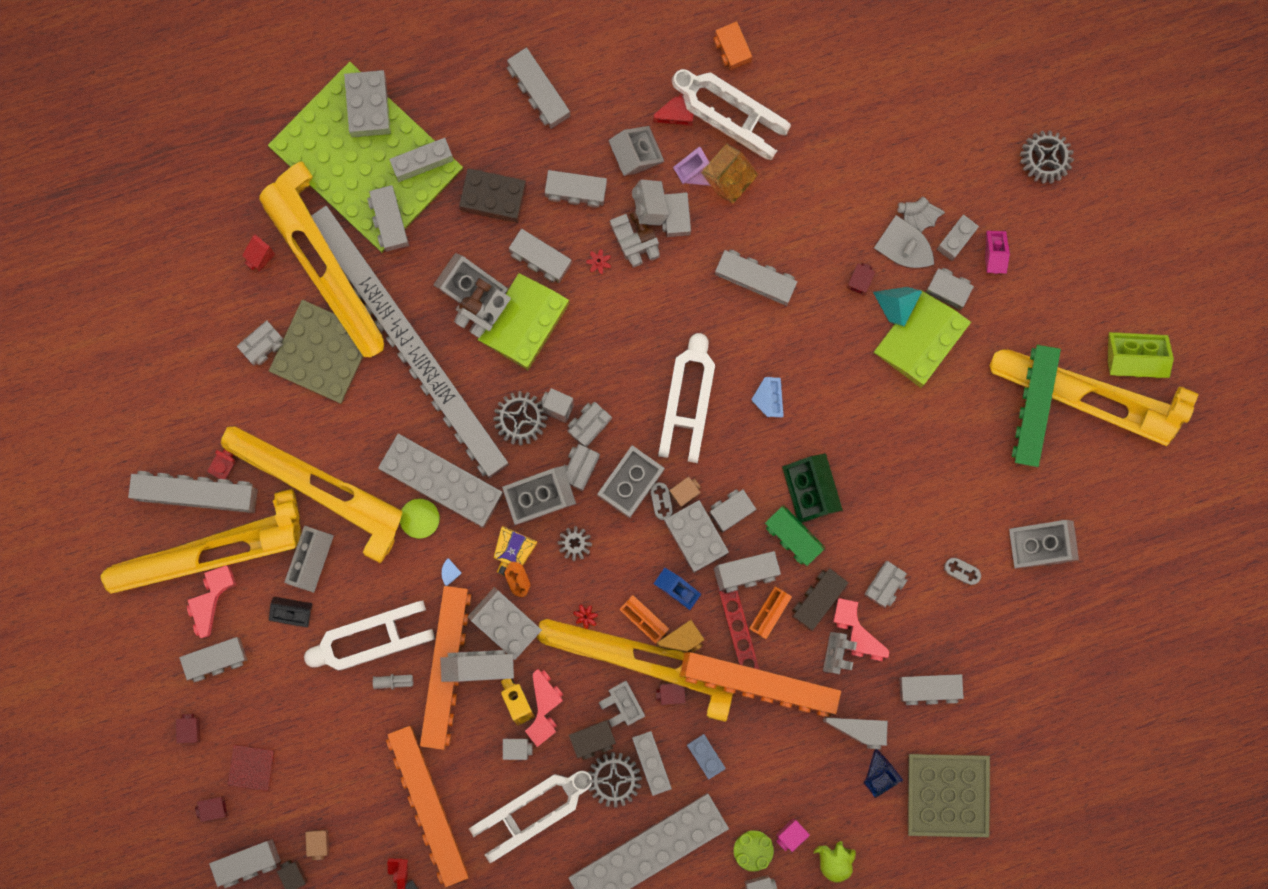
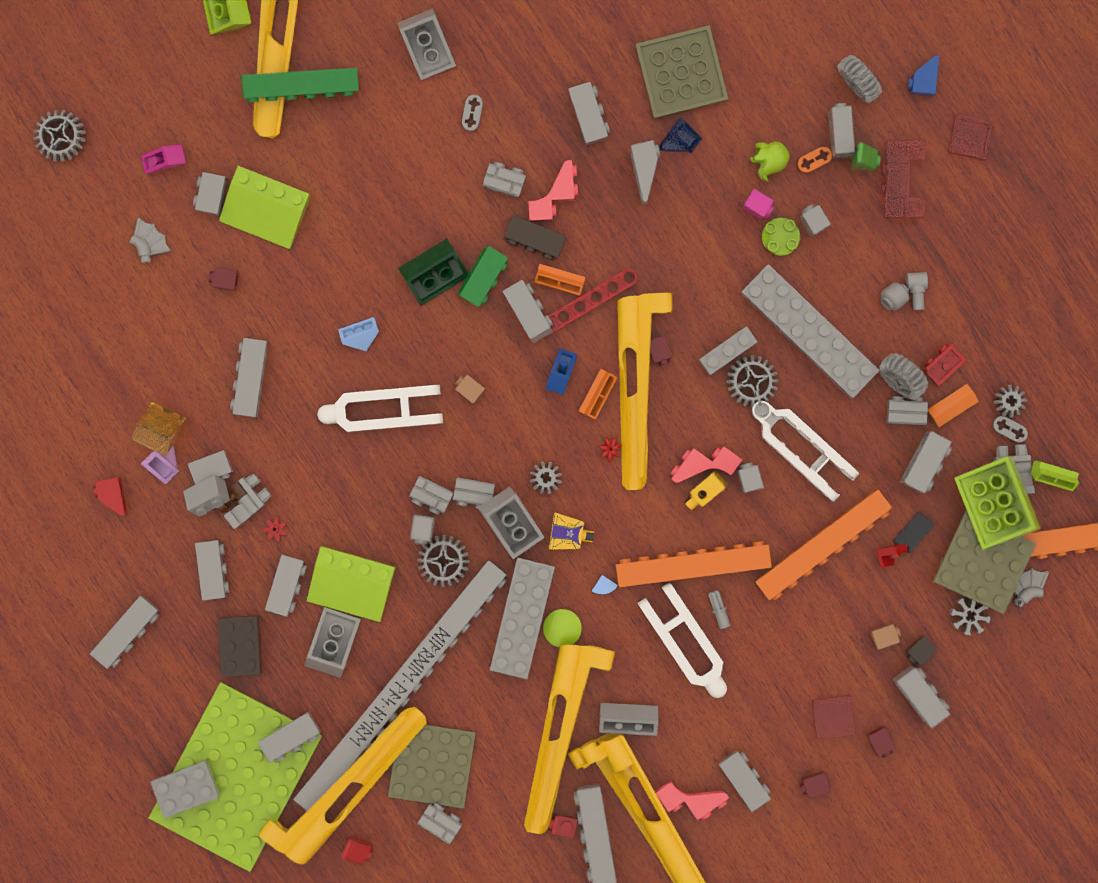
camera: 100 degrees left, 5 degrees up
(290, 611) = (681, 722): black slope -> none
(421, 159) = (225, 722): light grey brick -> none
(476, 666) = (685, 535): light grey piece -> none
(481, 313) = (355, 624): light grey hips -> none
(504, 623) = (638, 521): light grey brick -> none
(514, 579) = (592, 518): orange beam -> none
(592, 739) = (722, 410): dark brown brick -> none
(626, 704) = (679, 389): light grey plate -> none
(630, 482) = (474, 441): light grey brick -> none
(636, 150) = (159, 523): light grey slope -> none
(656, 502) = (481, 404): light grey beam -> none
(683, 639) = (606, 352): pearl gold slope -> none
(689, 85) = (83, 489): white piece -> none
(696, 536) = (508, 367): light grey brick -> none
(706, 756) = (708, 303): sand blue brick -> none
(732, 46) = (34, 459): orange brick -> none
(732, 510) = (475, 340): light grey brick -> none
(760, 683) = (628, 271): orange brick -> none
(835, 651) = (580, 210): light grey plate -> none
(898, 303) = (237, 238): teal slope -> none
(905, 245) = (180, 246): light grey shield -> none
(957, 237) = (160, 199): light grey brick -> none

